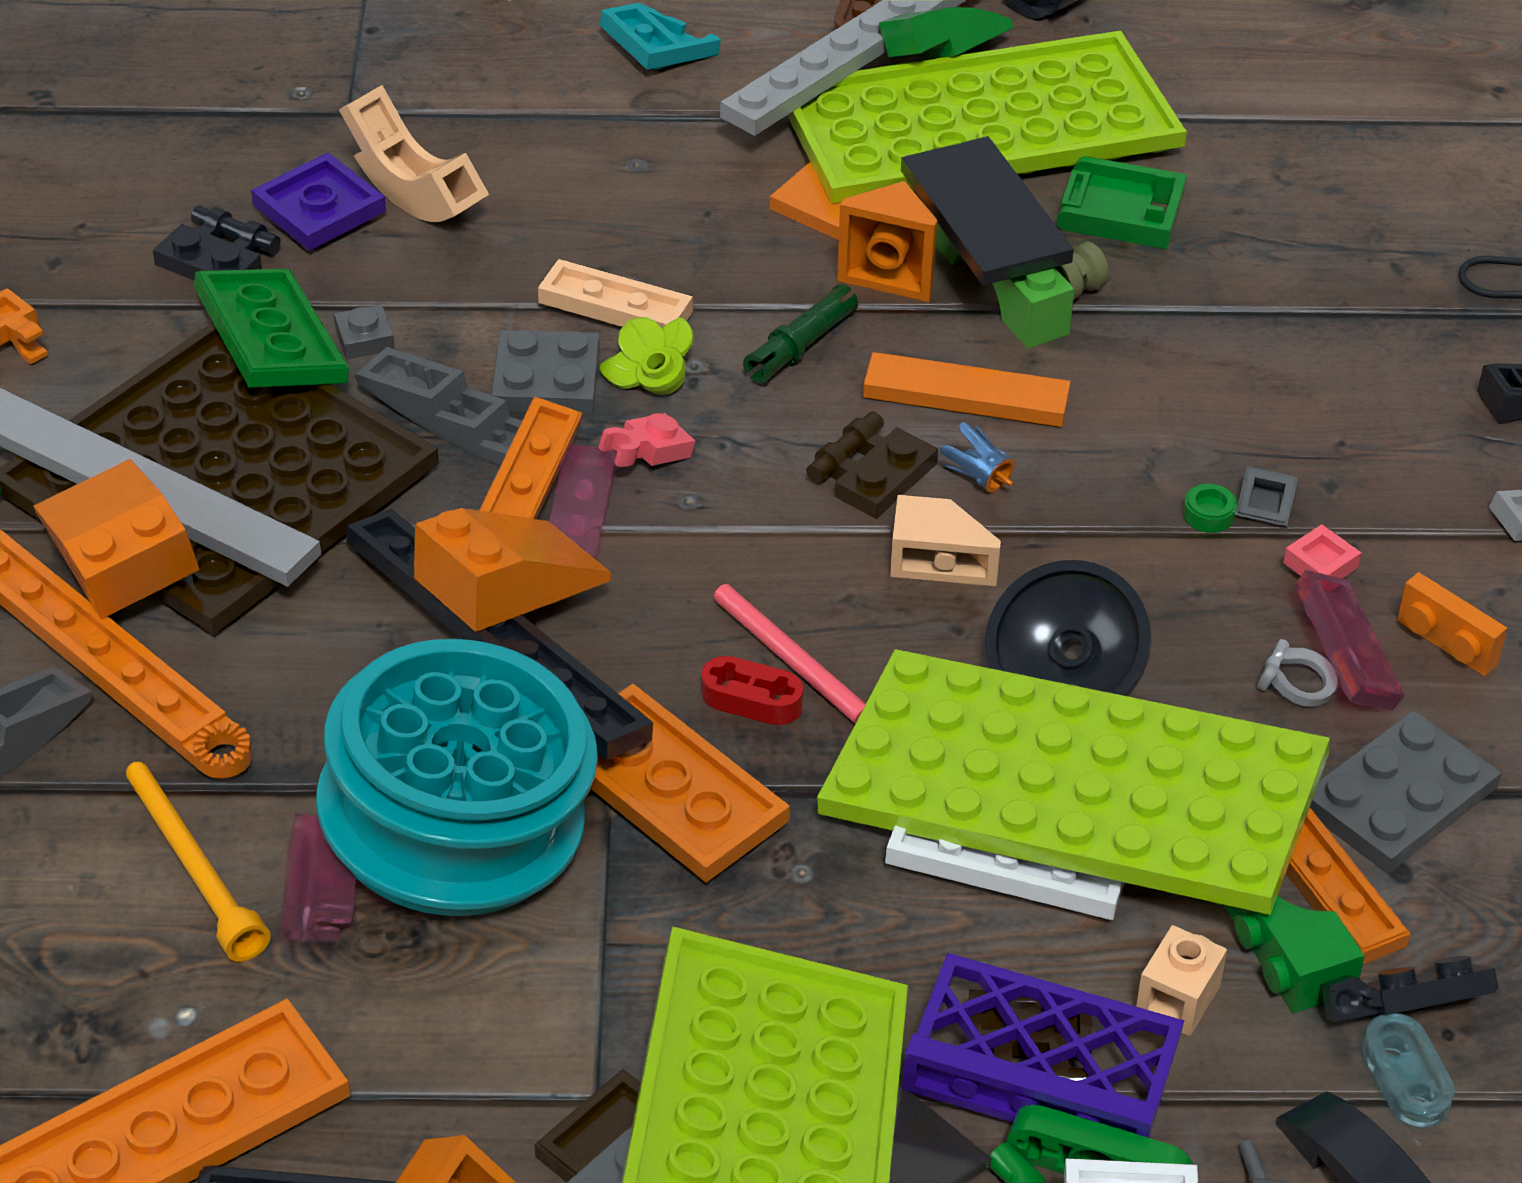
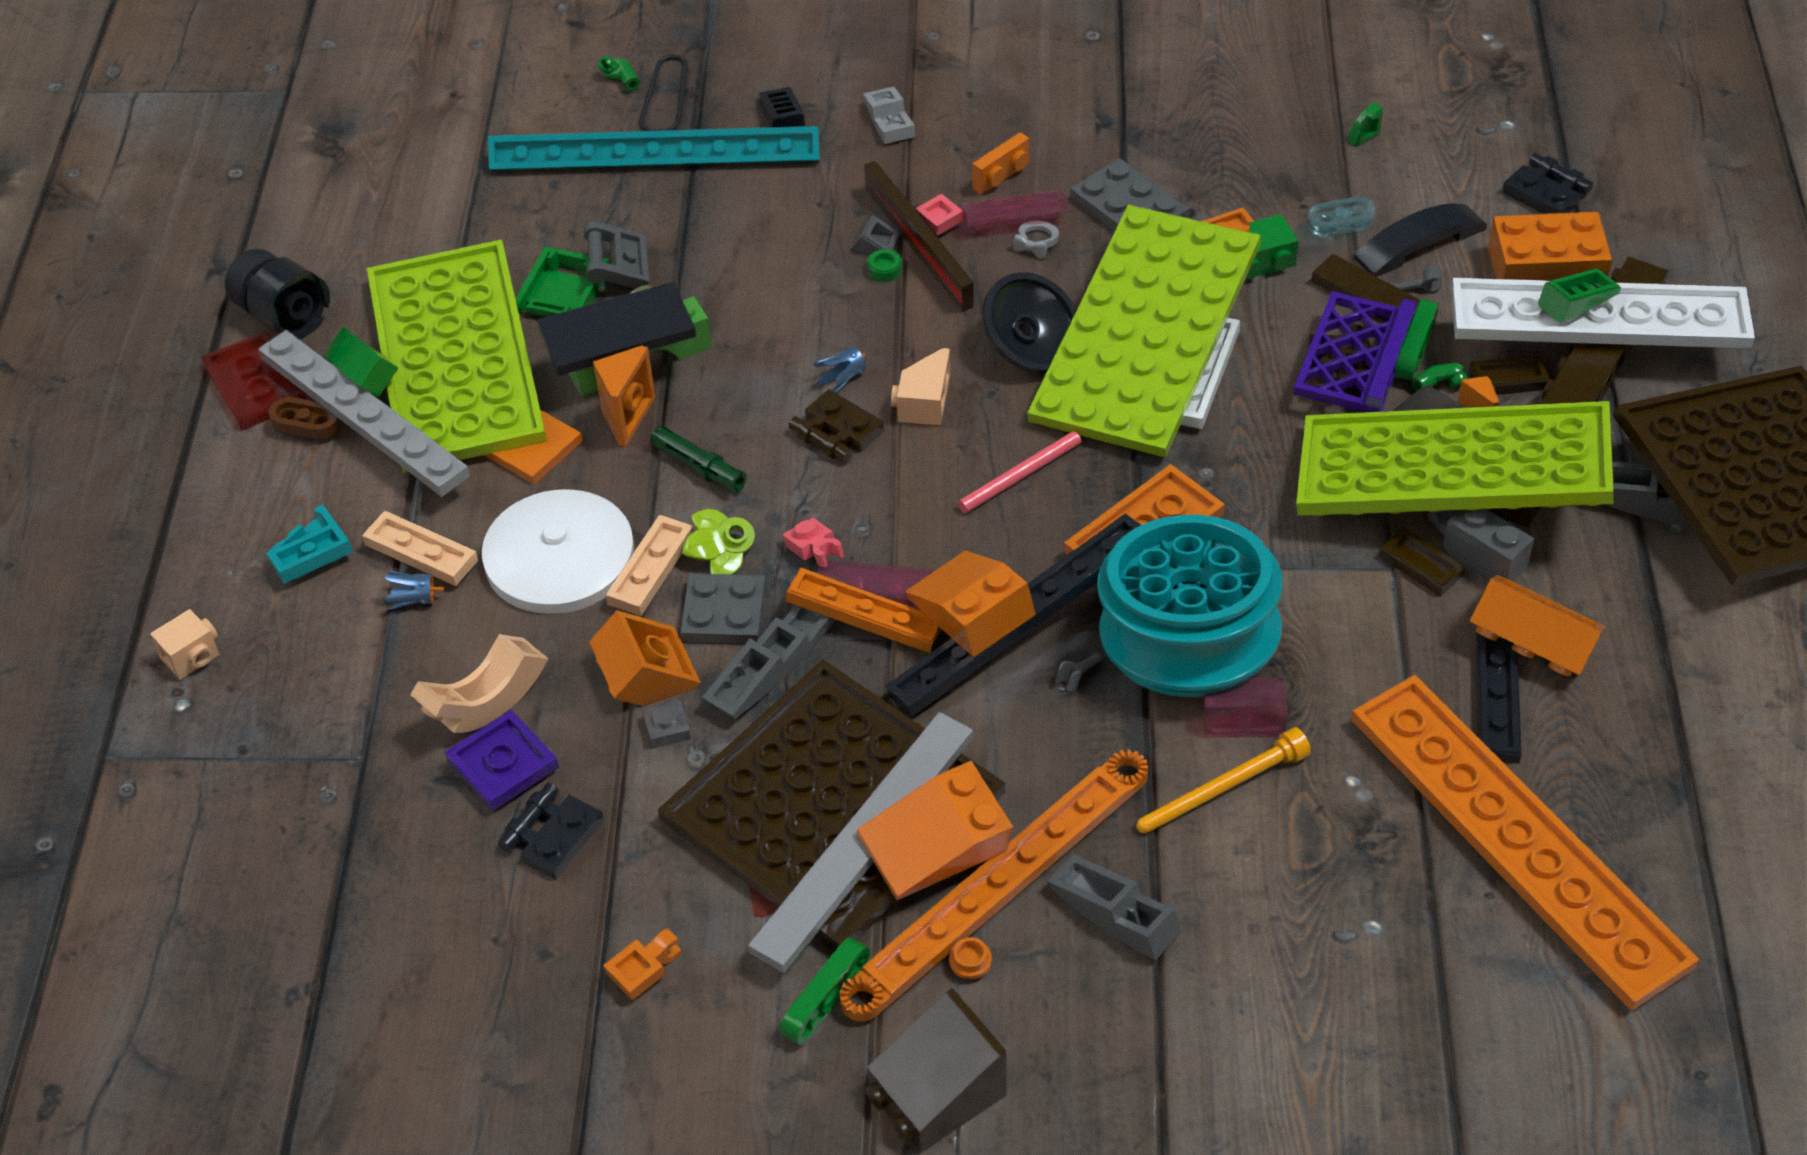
camera: 85 degrees left, 5 degrees up
(270, 328) = (675, 772): green tile -> none
(454, 299) = (642, 659): none -> orange slope
(583, 121) = (419, 589): none -> flat silver piece
(648, 116) = (420, 548): none -> light nougat plate
(652, 225) = (557, 551): none -> white dish
(752, 690) = (1050, 488): red beam -> none
(966, 389) = (760, 377): orange tile -> none
(1175, 246) = (627, 255): none -> dark grey plate
(1182, 977) = (1290, 298): light nougat brick -> none
(1233, 1096) = (1345, 278): none -> dark brown tile
(1265, 531) = (919, 236): none -> dark brown tile
(1404, 990) = (1287, 198): black hinge -> none
(1411, 272) = (654, 148): none -> teal plate

